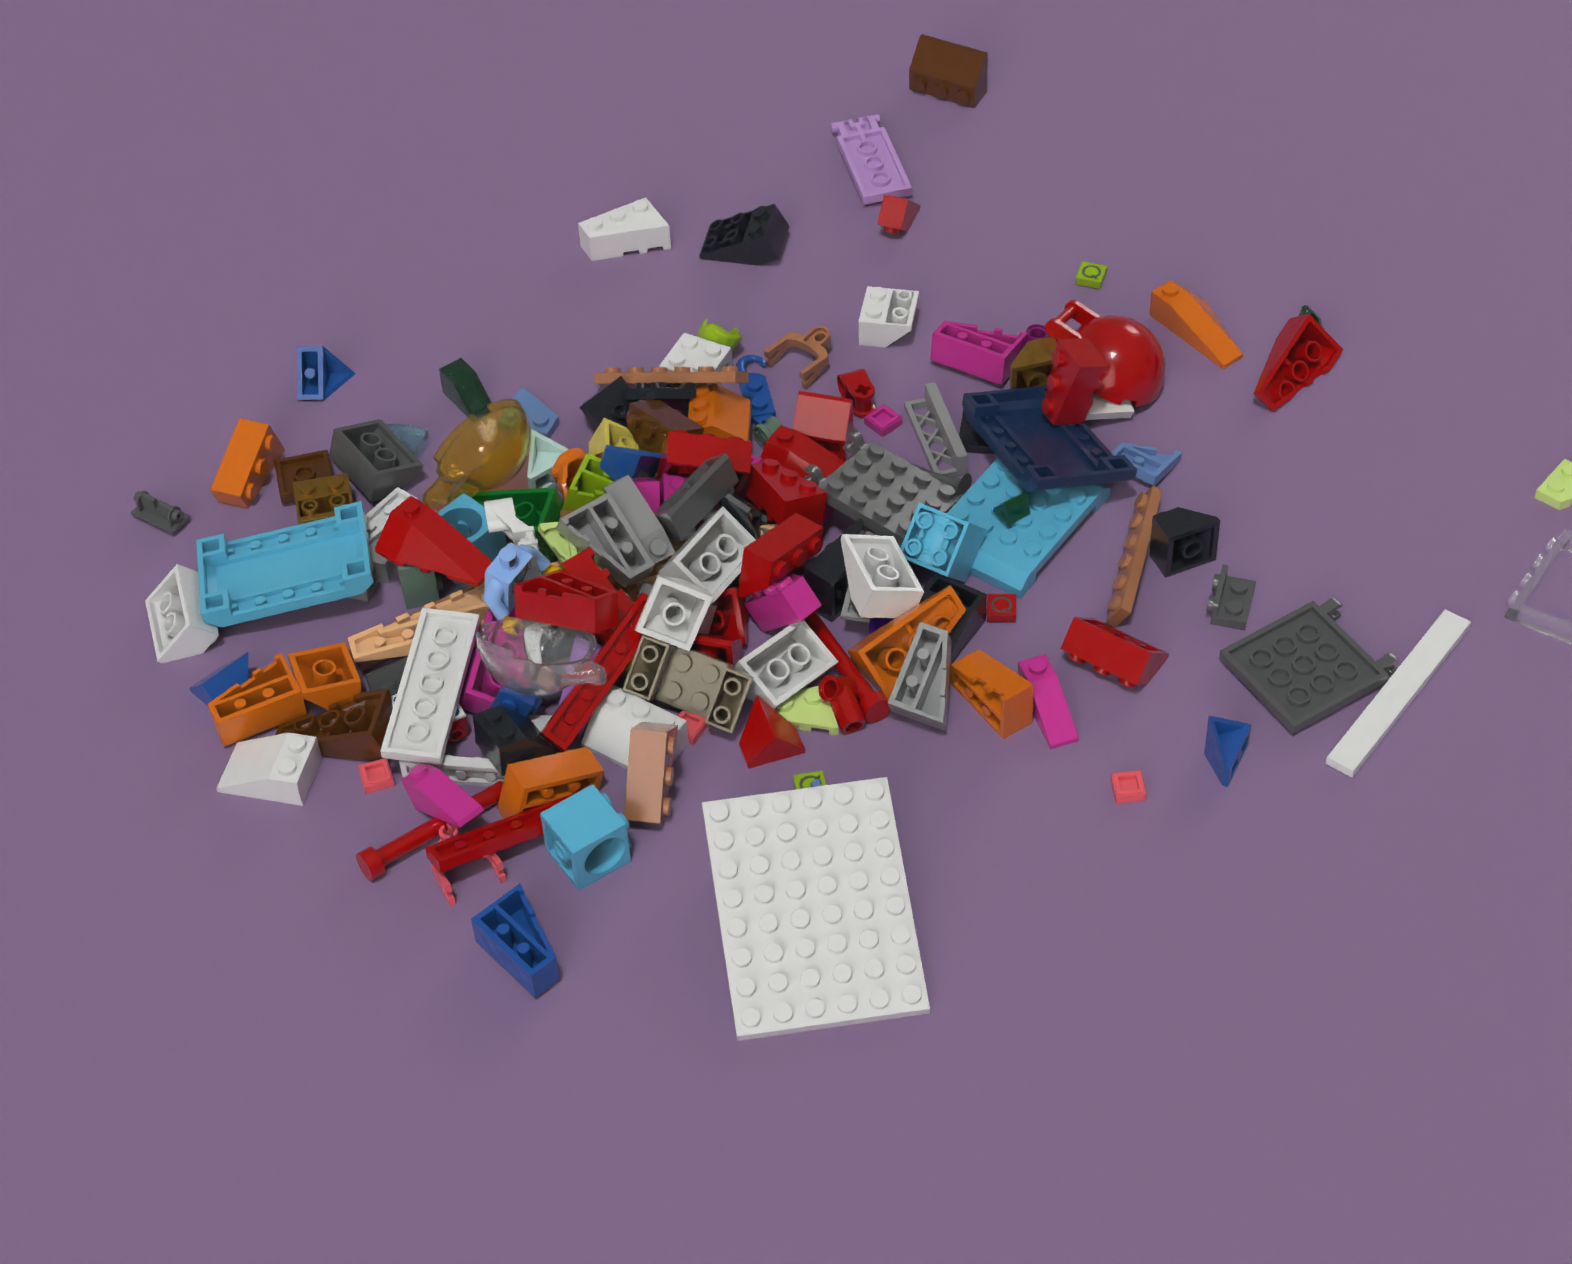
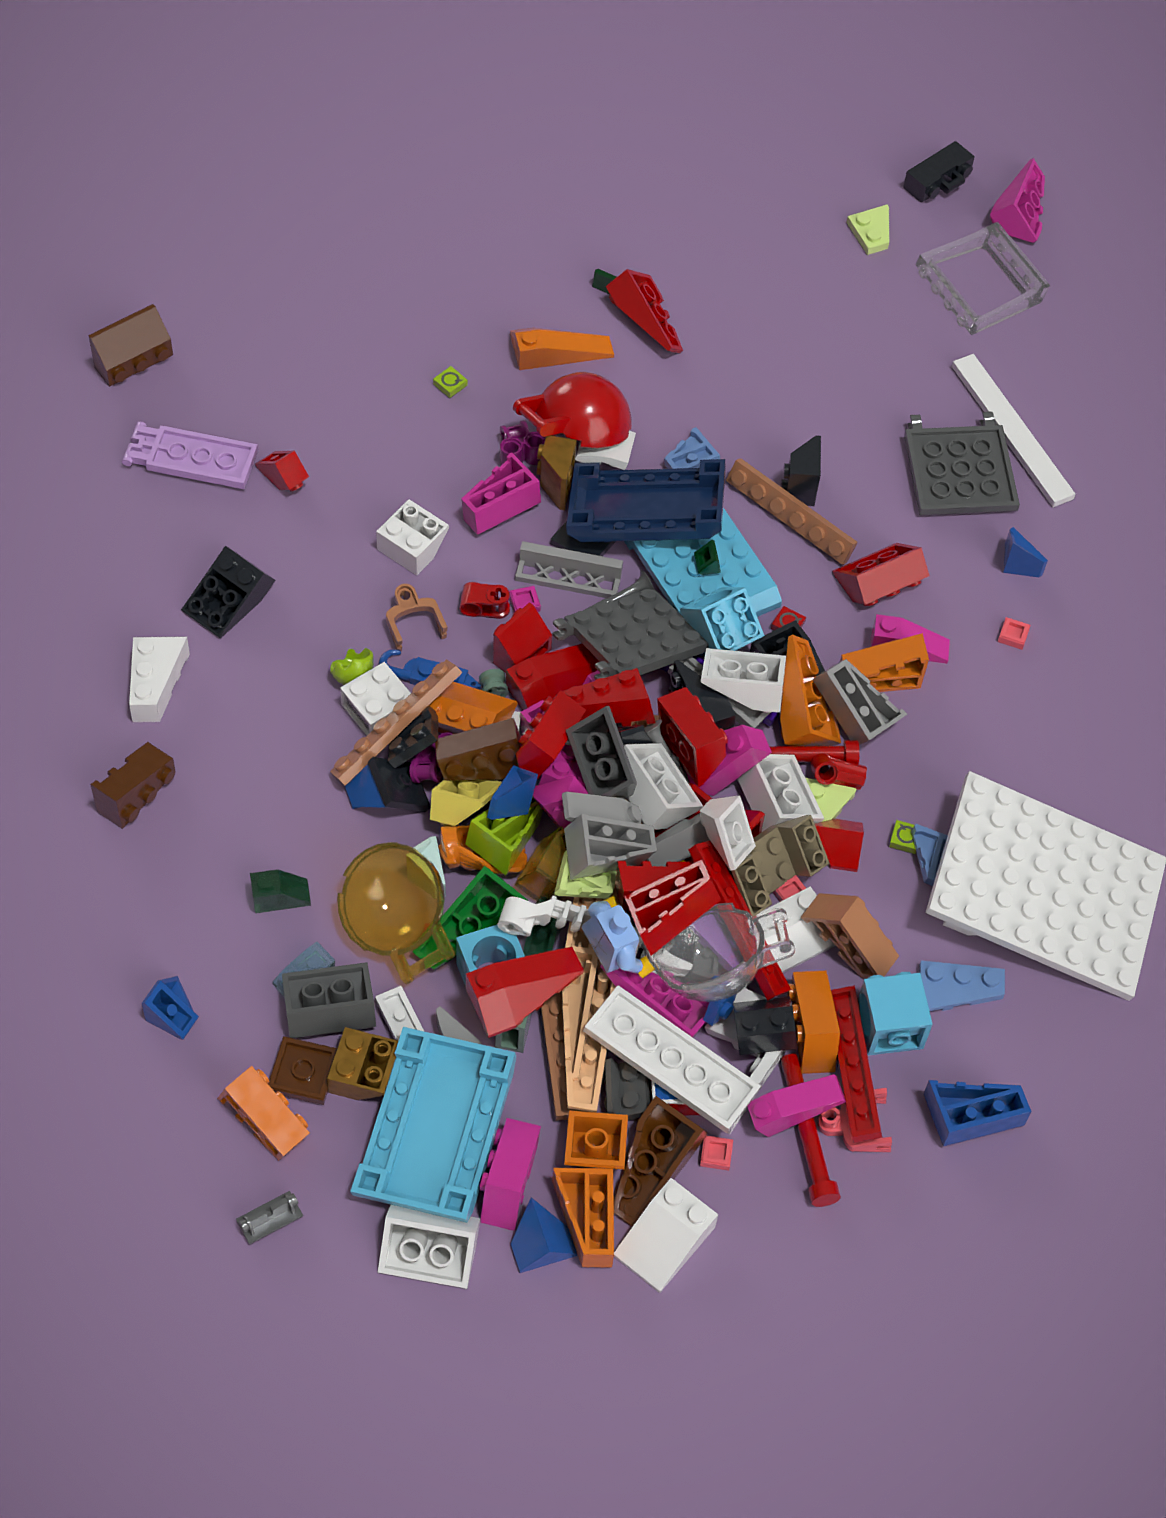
camera: 70 degrees left, 10 degrees up
(272, 631) = (508, 1173): none -> dark pink wedge
(509, 264) = (133, 785): none -> reddish brown wedge
(539, 415) = (336, 854): medium blue wing -> none
(663, 887) = (959, 984): none -> medium blue wing
(1072, 381) = (617, 443): red wedge -> none
(1231, 601) = (868, 478): dark grey bracket -> none

